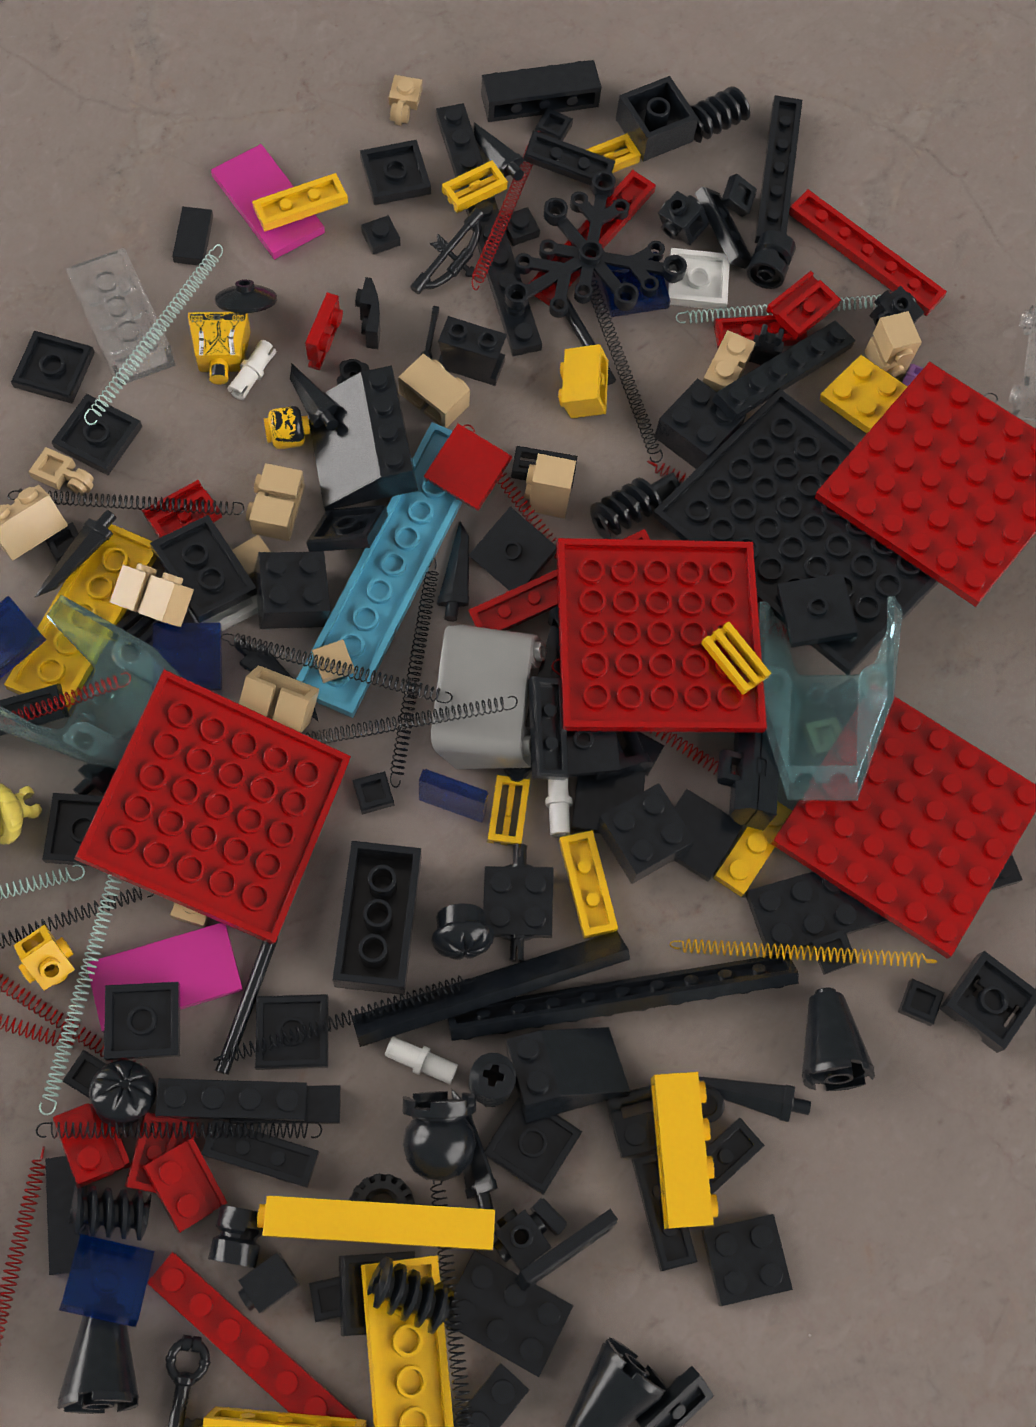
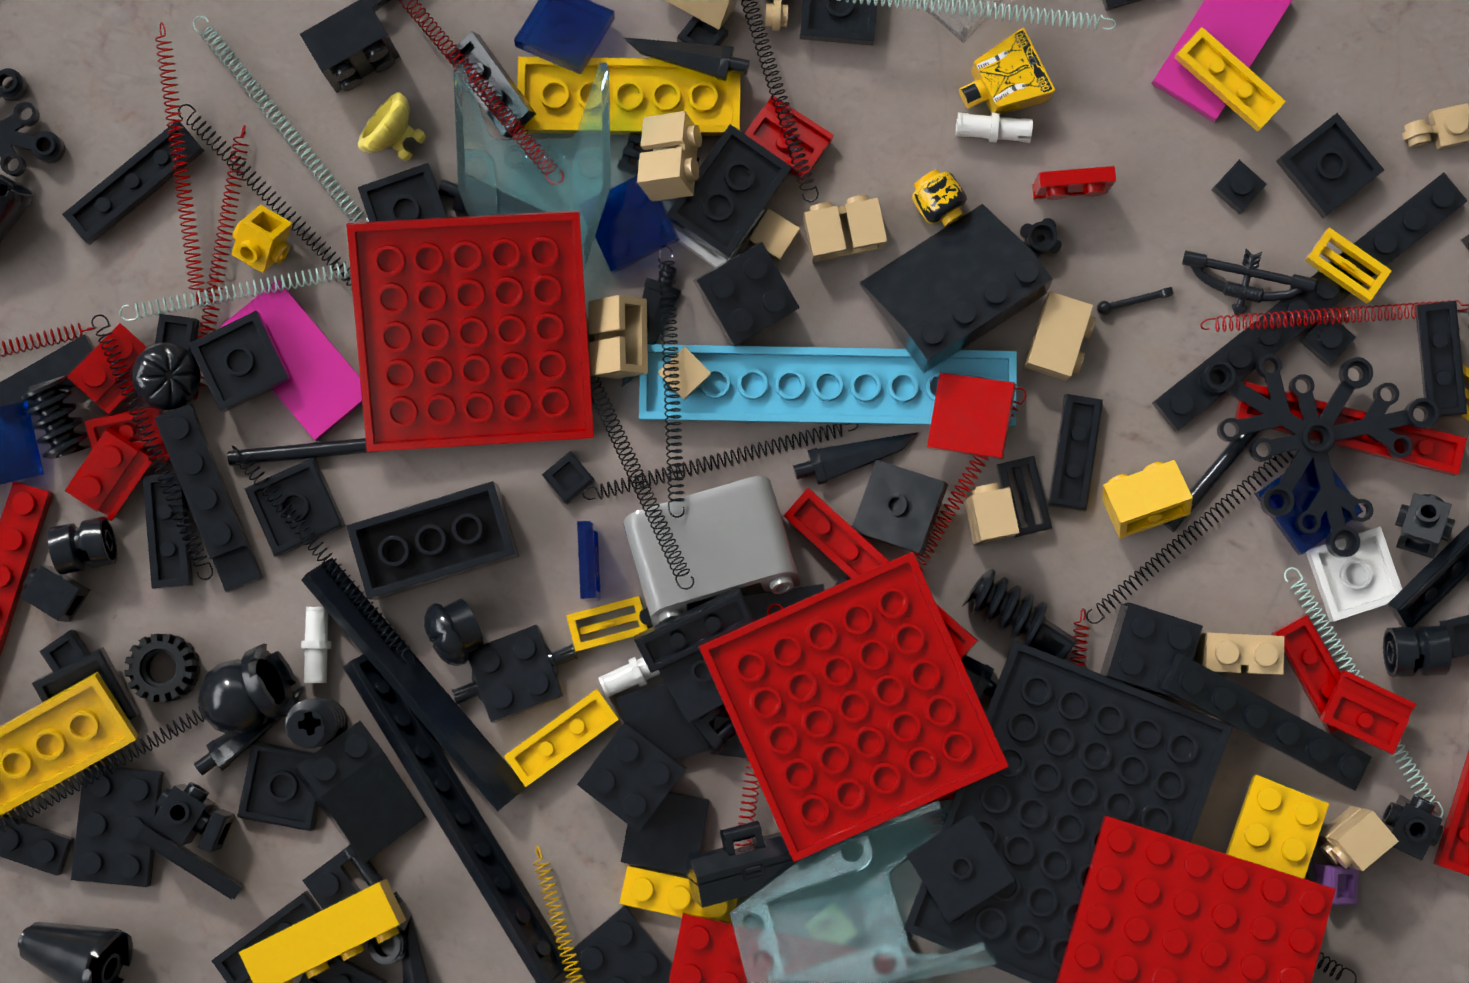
camera: 80 degrees right, 15 degrees up
(245, 297) = (1077, 79): black dish -> none
(316, 402) = (978, 218): black bar -> none
(347, 528) = (839, 320): black plate -> none
(369, 313) = (1132, 218): black slope -> none
(377, 1222) = (137, 672): yellow brick -> none
(411, 1294) = (82, 730): black piece -> none
(471, 350) = (1124, 356): black hips -> none
(504, 158) = (1410, 275): black bar -> none
(526, 419) = (1075, 452): none -> black tile
(744, 649) = (839, 828): yellow tile -> none
(766, 345) = (1290, 690): black plate -> none

